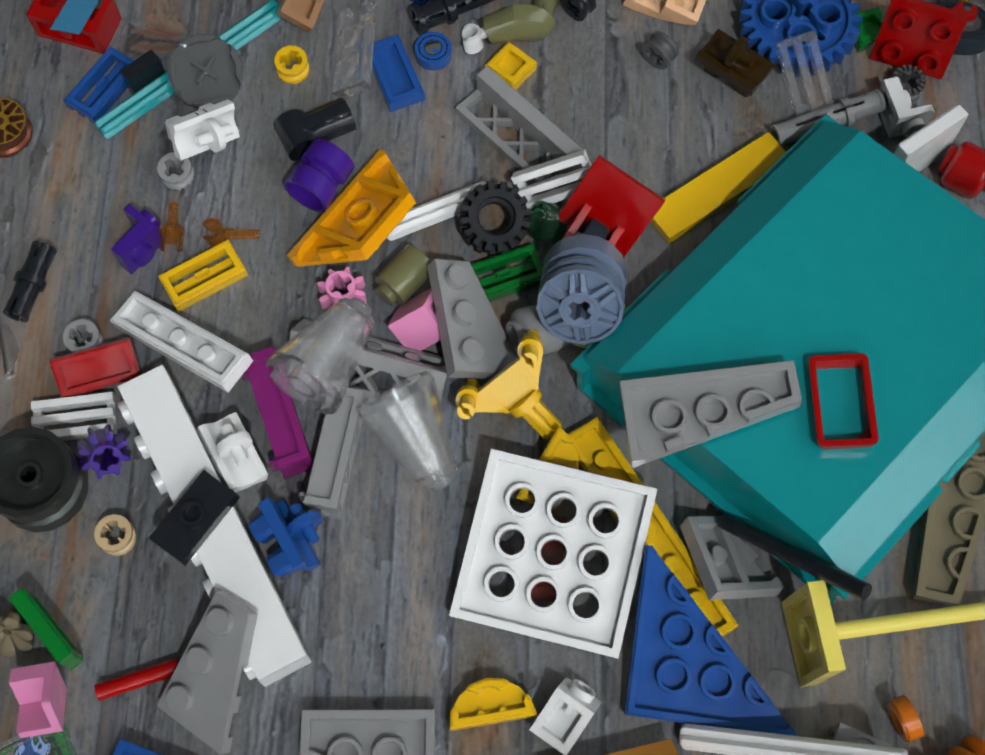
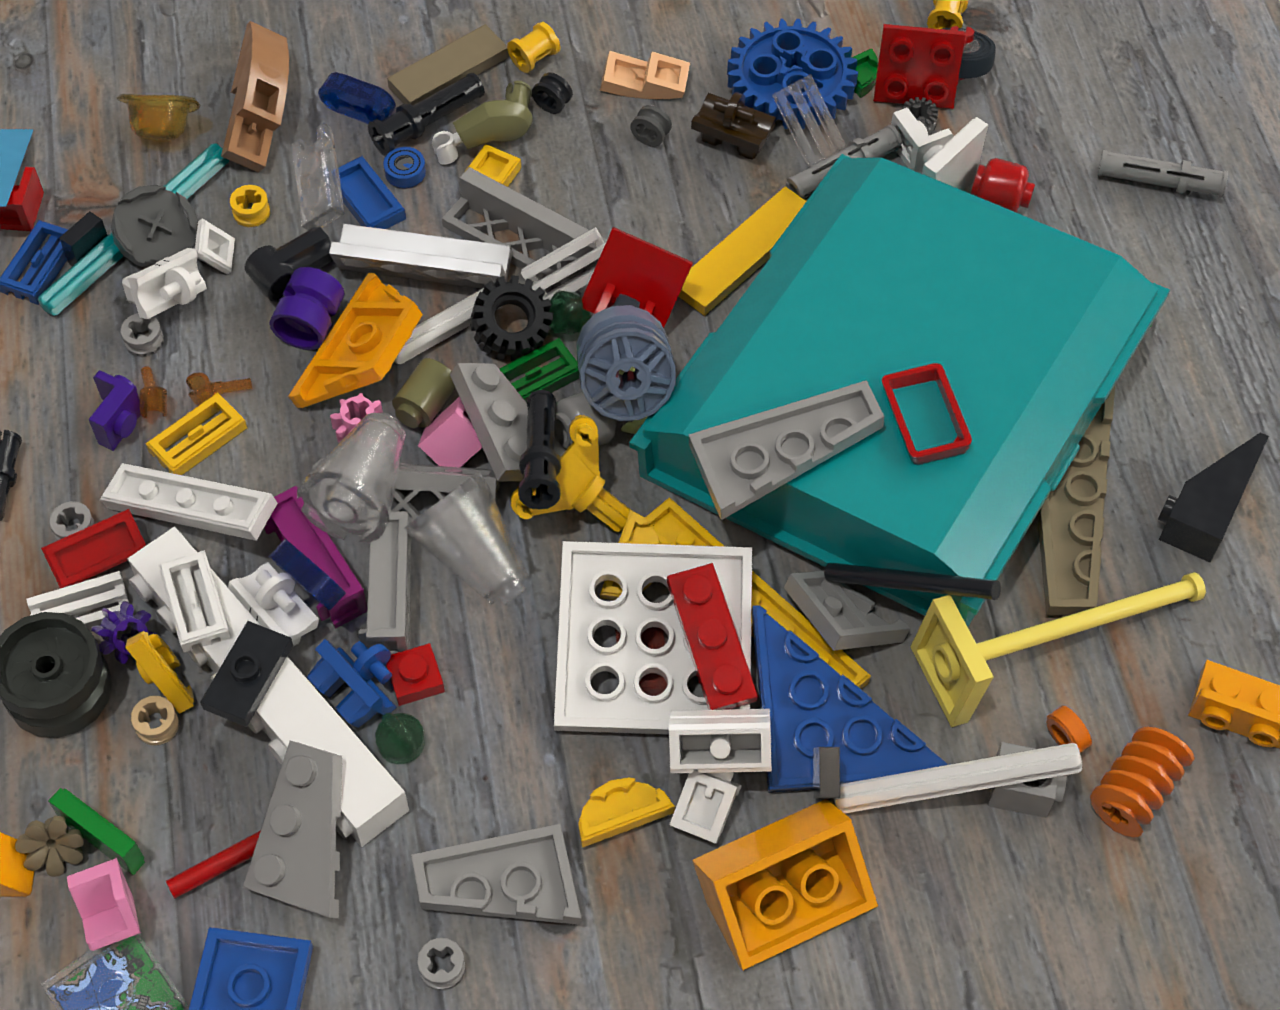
camera: 15 degrees left, 10 degrees down
(124, 489) = (156, 665): none -> yellow plate
(166, 473) = (203, 633): none -> white tile
(253, 99) = (214, 246): none -> white slope
(263, 437) = (307, 574): none -> clear blue beam
(316, 595) = (399, 738): none -> clear green tile
(341, 538) = (415, 674): none -> red plate
(430, 142) = (420, 256): none -> fence
(486, 370) = (540, 461): none -> black pin
(588, 669) = (720, 741): none -> white brick
(602, 567) = (711, 638): none -> red plate
(676, 717) = (826, 772): none -> black tile

